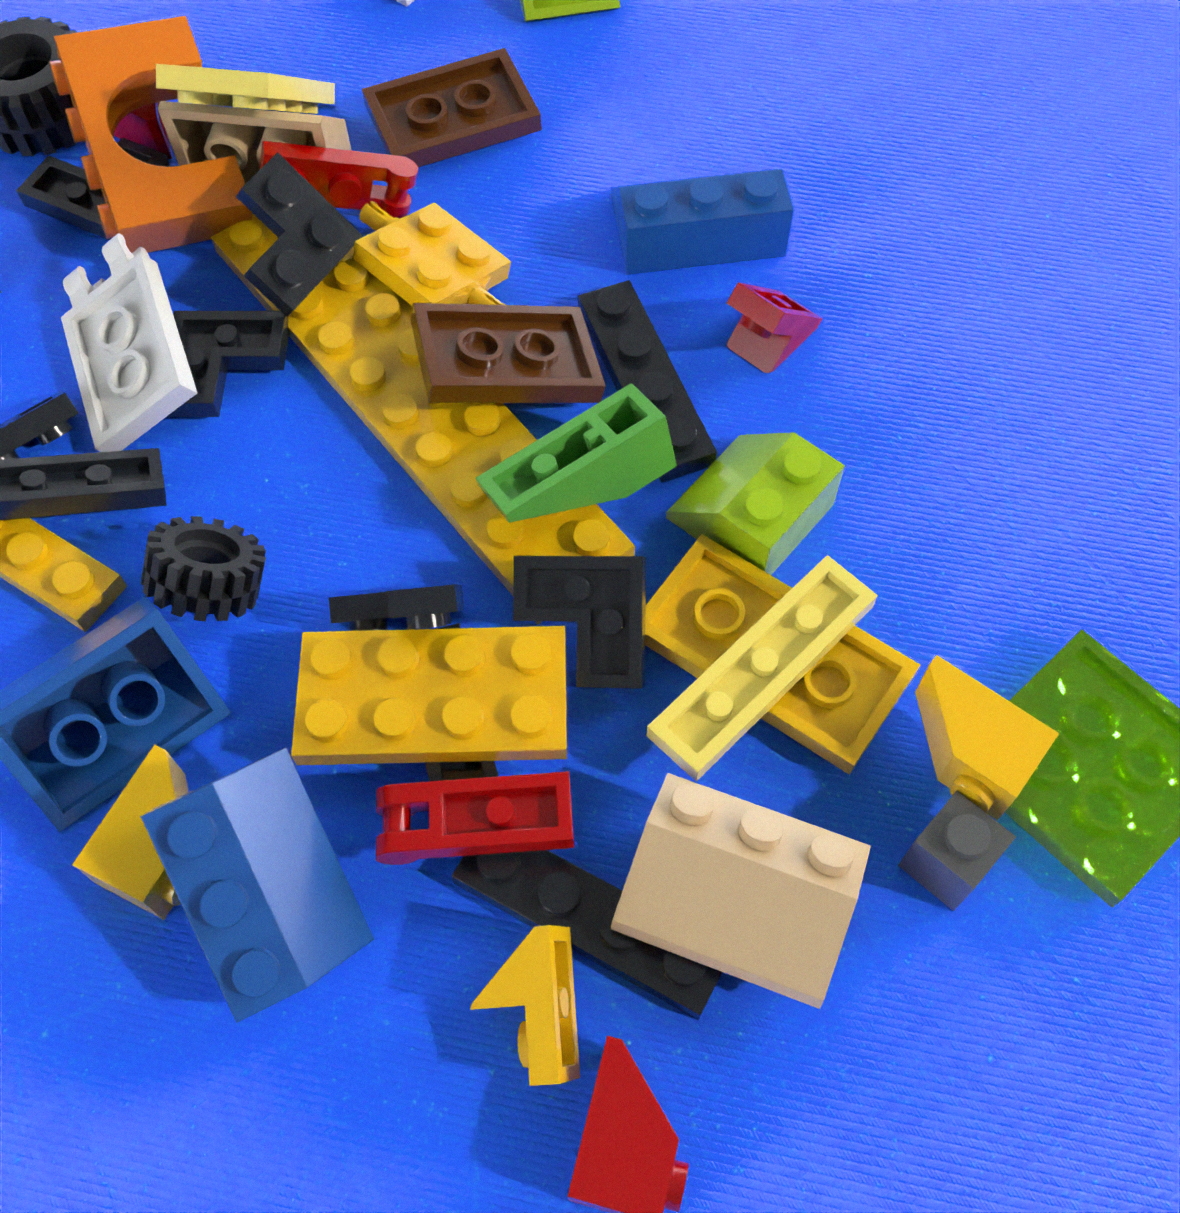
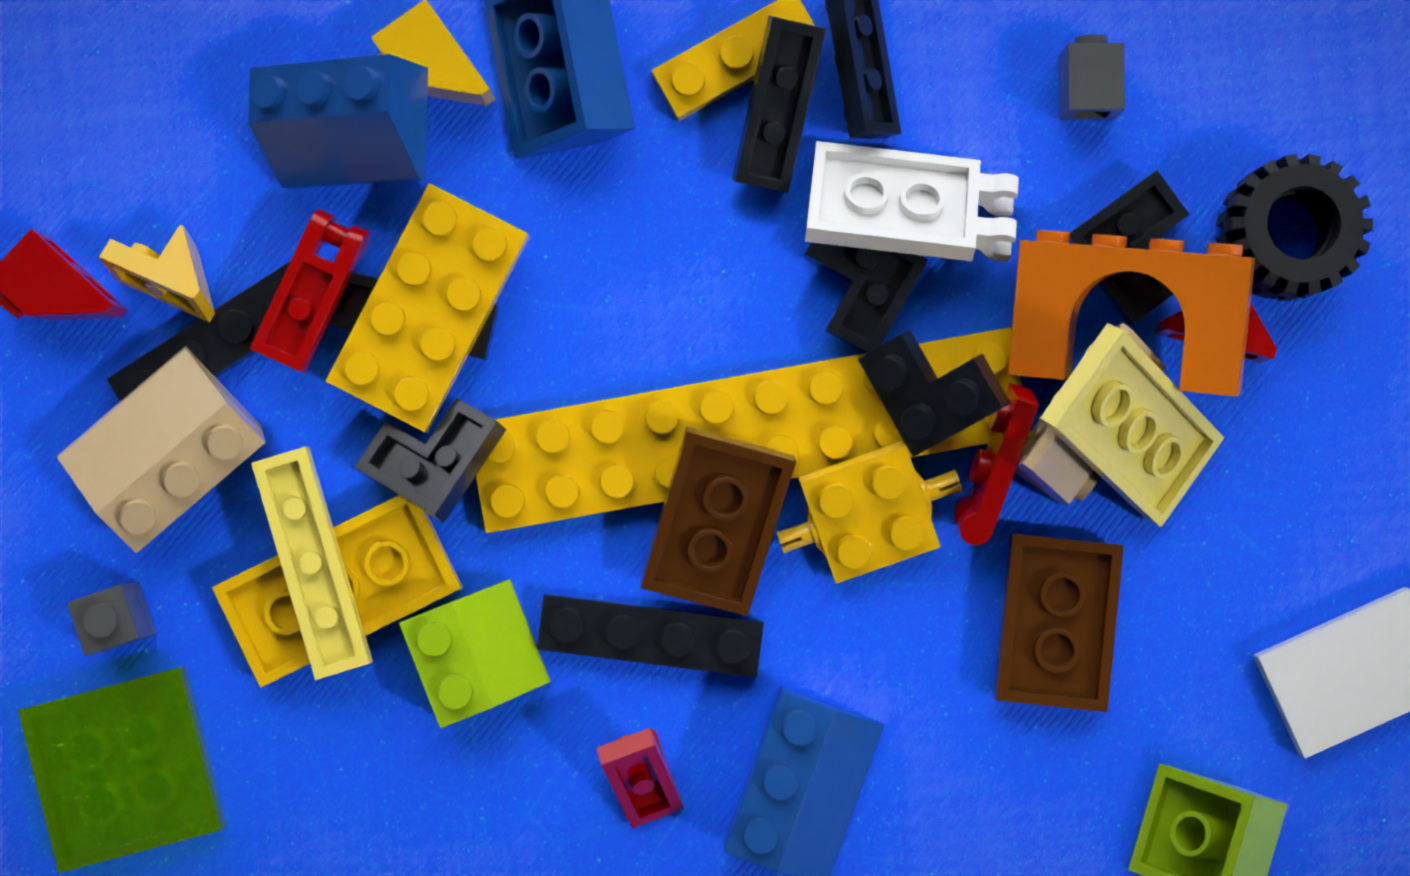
camera: 120 degrees right, 25 degrees up
(202, 568) = (649, 205): black tyre -> none
(421, 606) = (517, 334): black plate -> none
(585, 461) = (559, 516): bright green slope -> none
(979, 737) = (163, 678): yellow slope -> none

